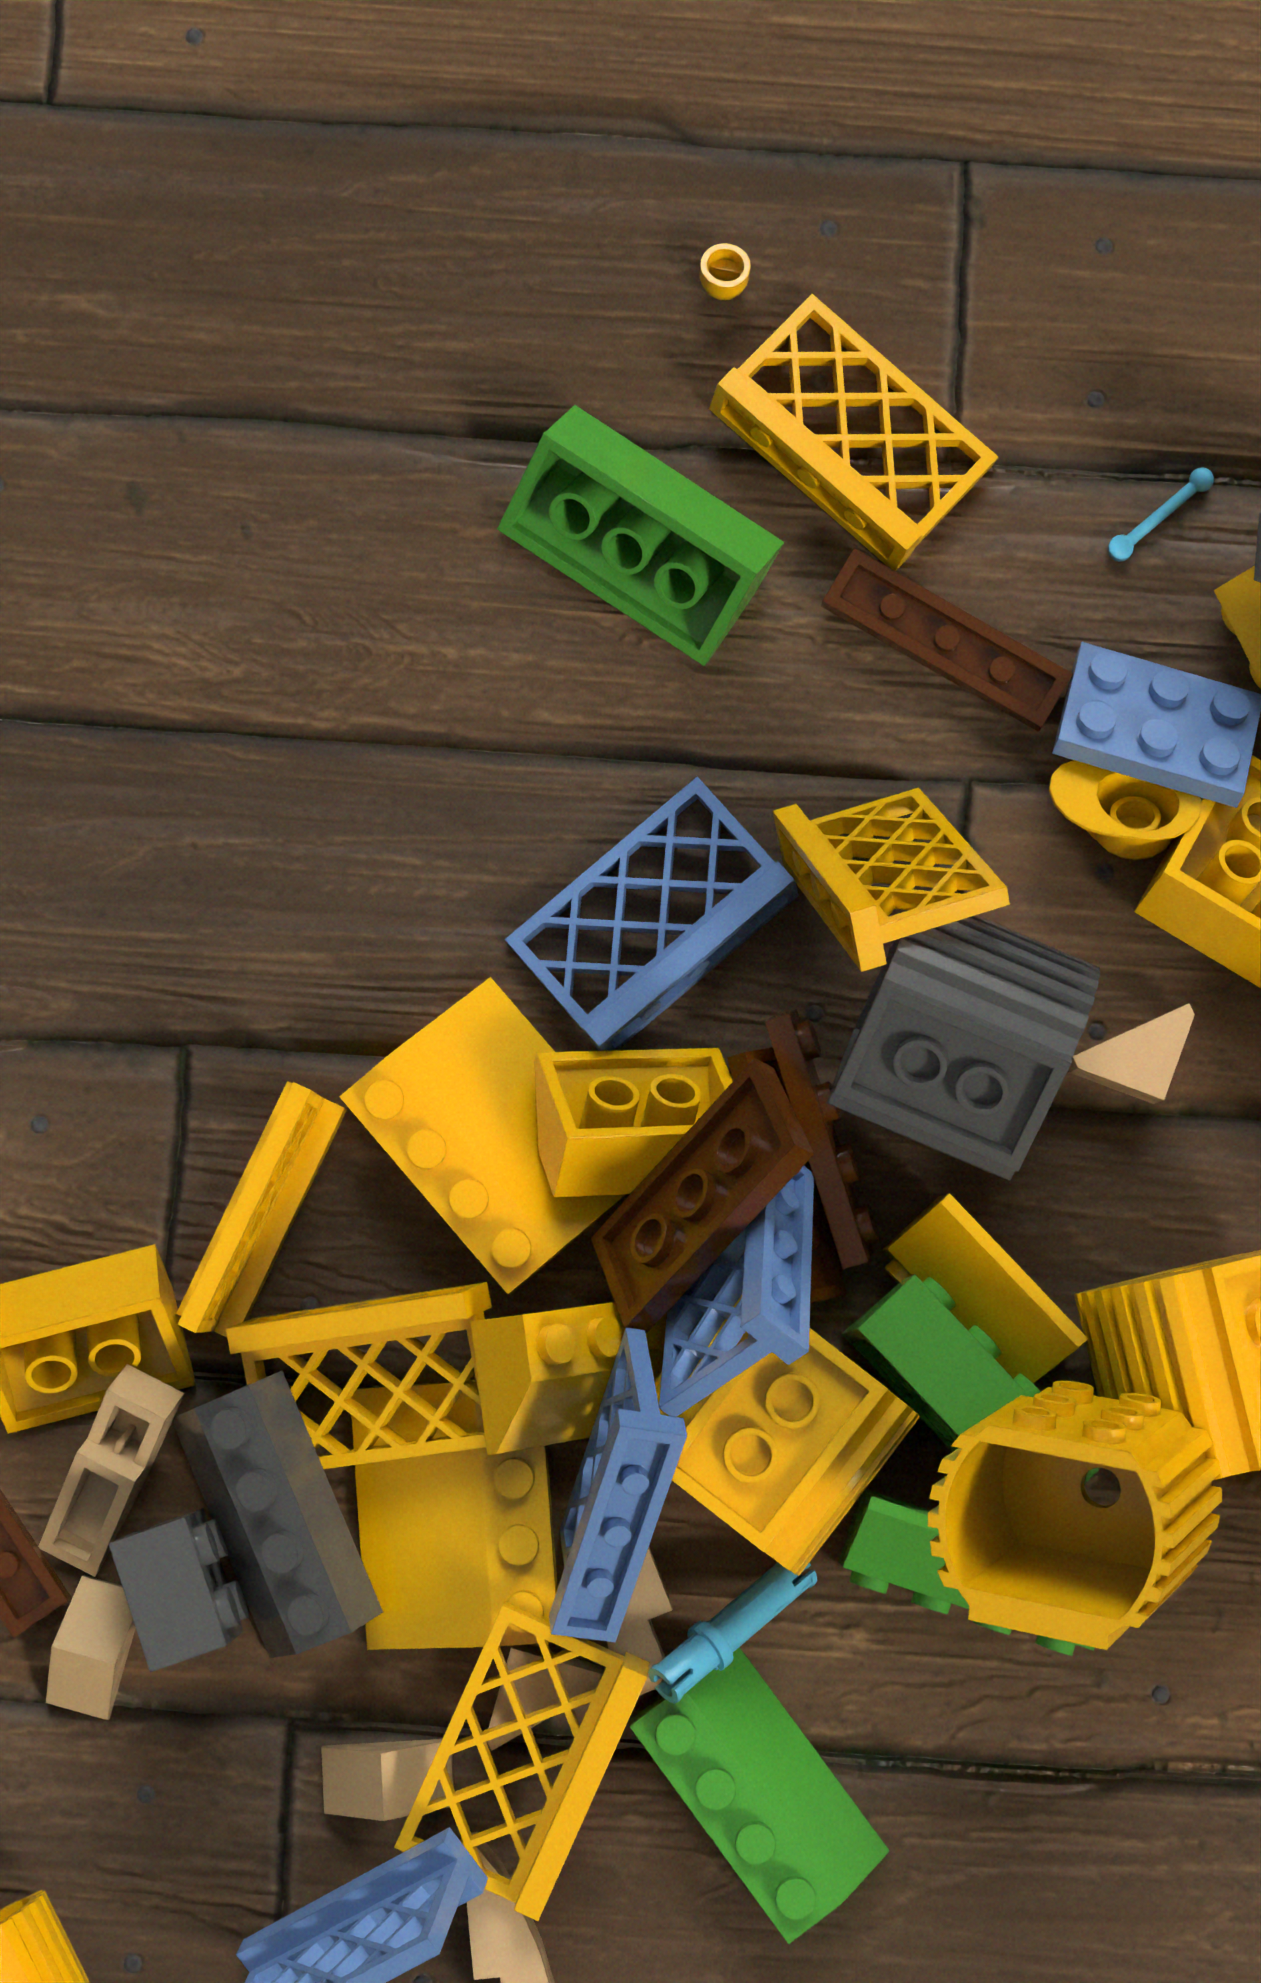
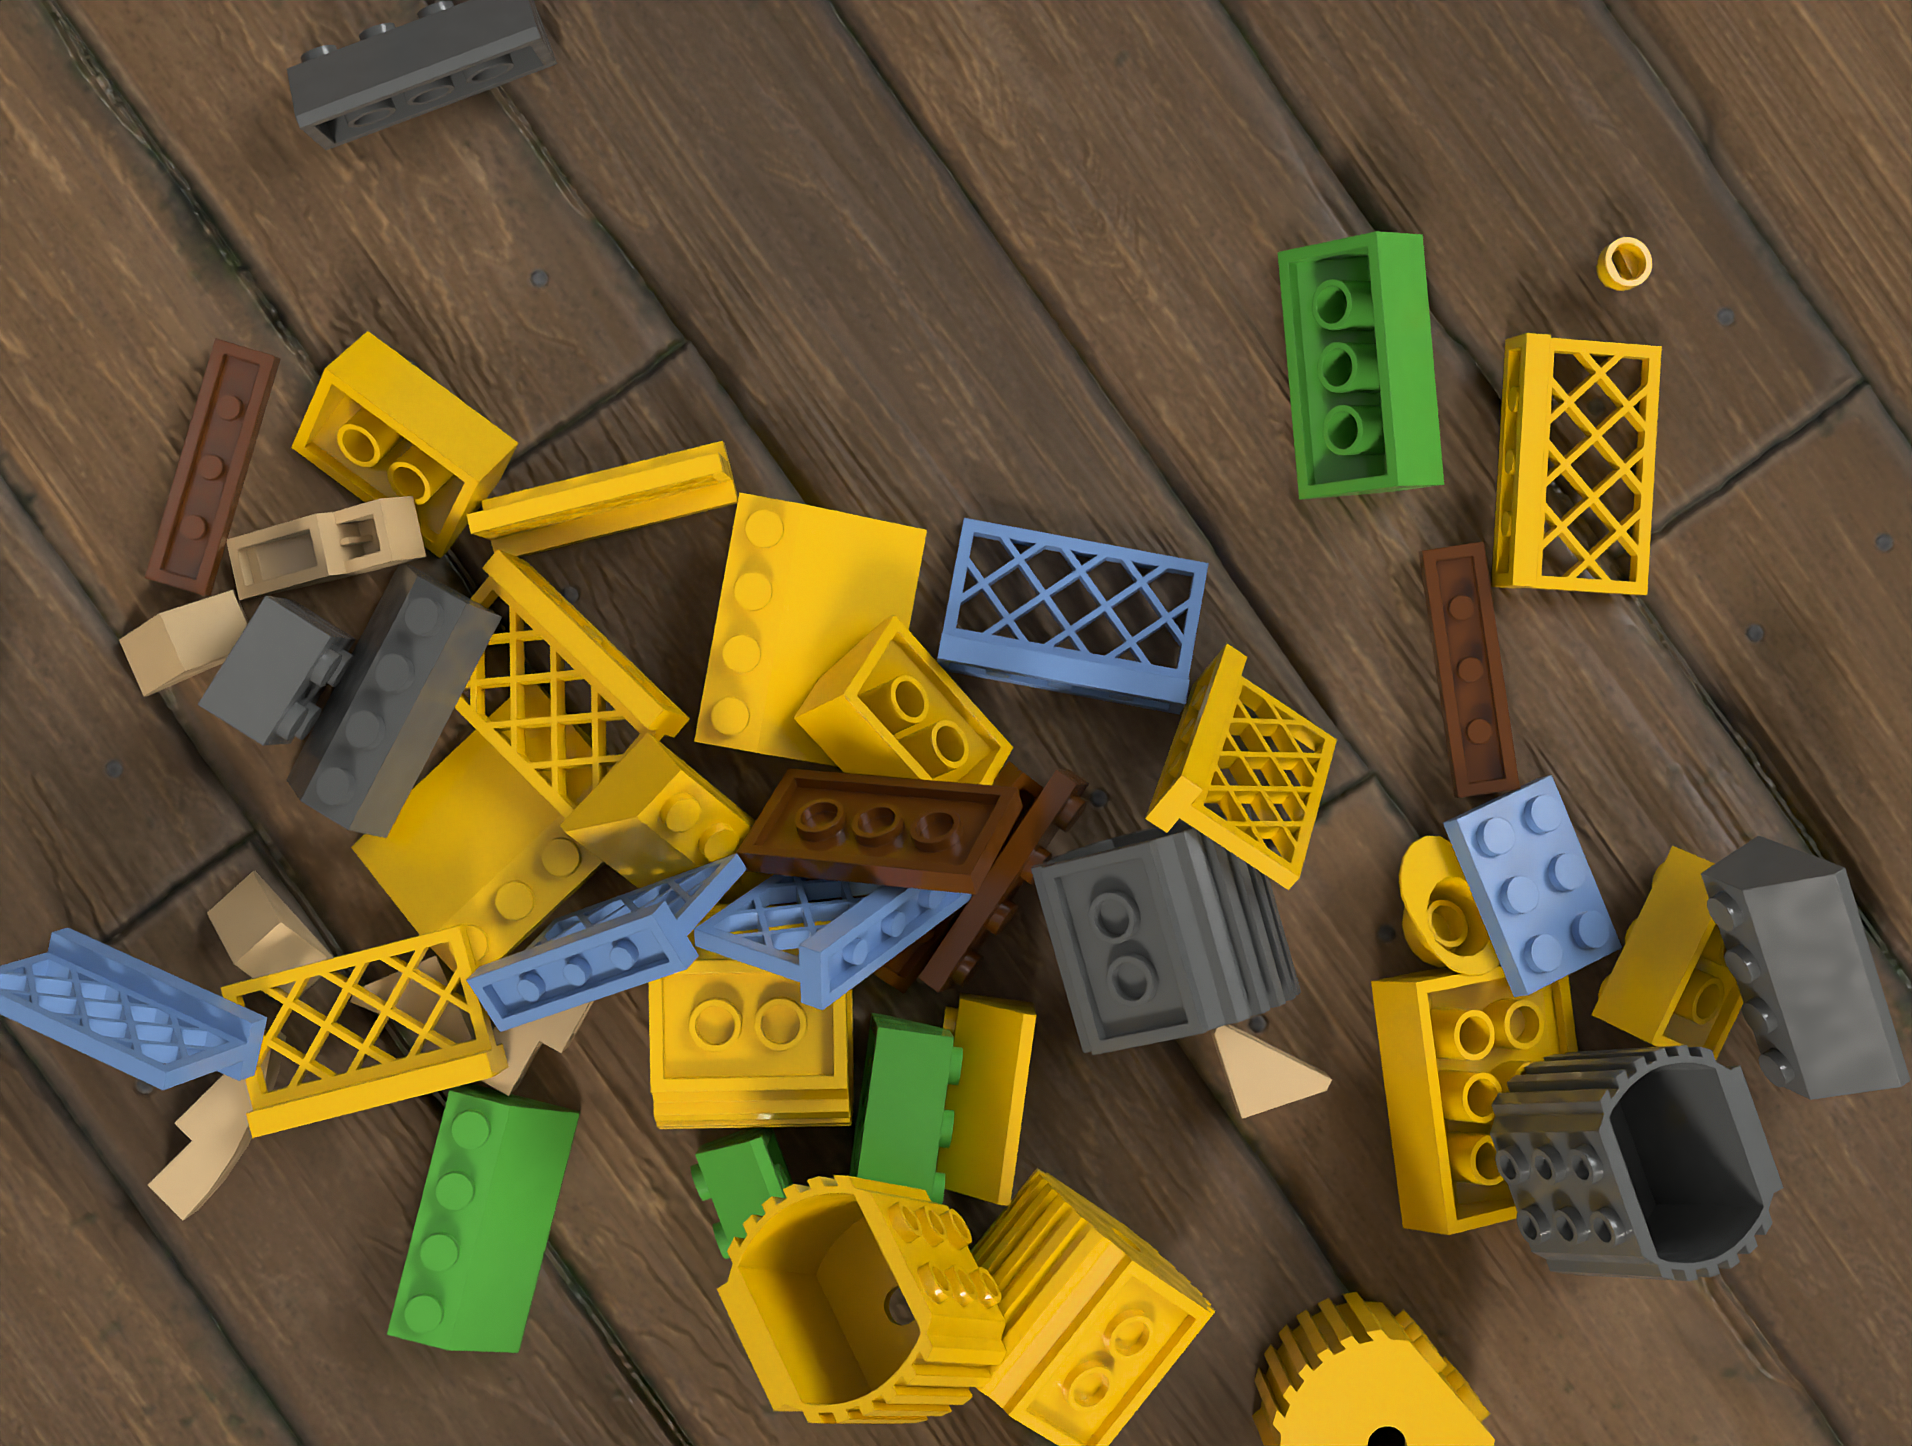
camera: 50 degrees right, 5 degrees up
(713, 1642) = (562, 1103): medium azure pin -> none
(1122, 546) = (1653, 746): medium azure hinge -> none

